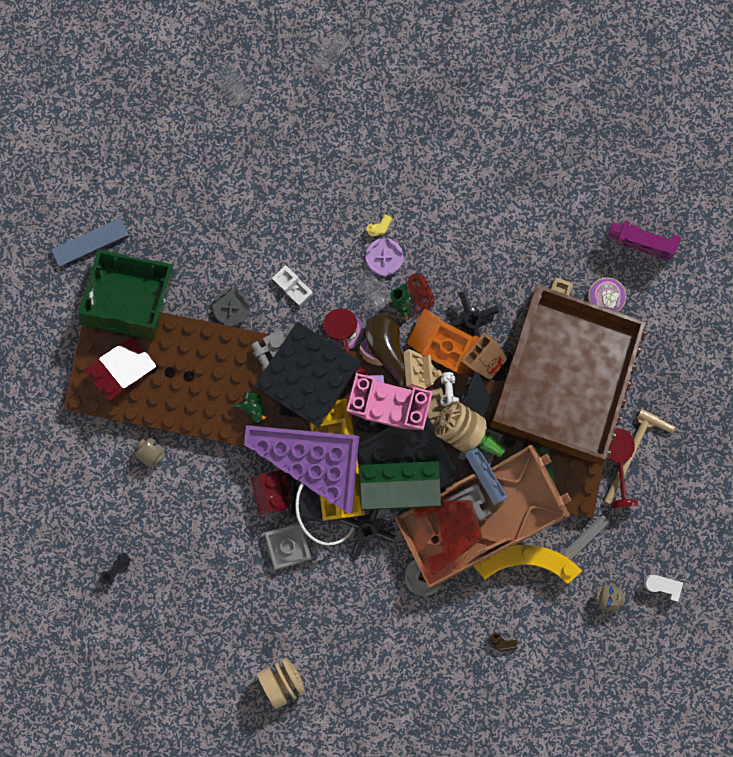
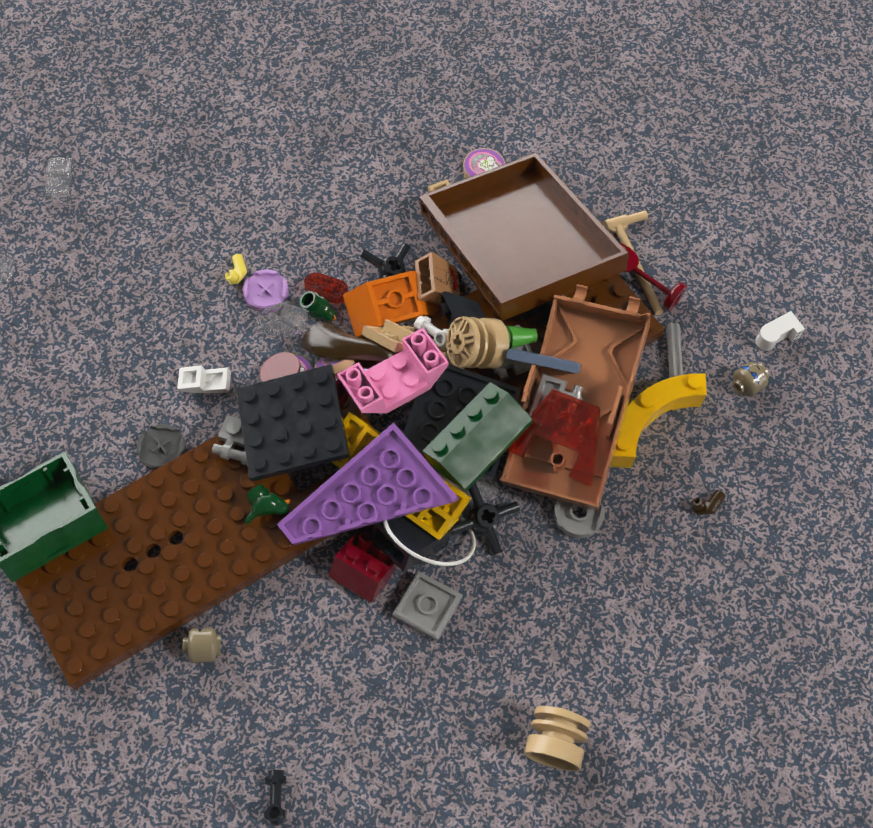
camera: 45 degrees left, 20 degrees down
(120, 369) = (95, 590): slope -> none
(646, 242) = (469, 100): magenta hips -> none

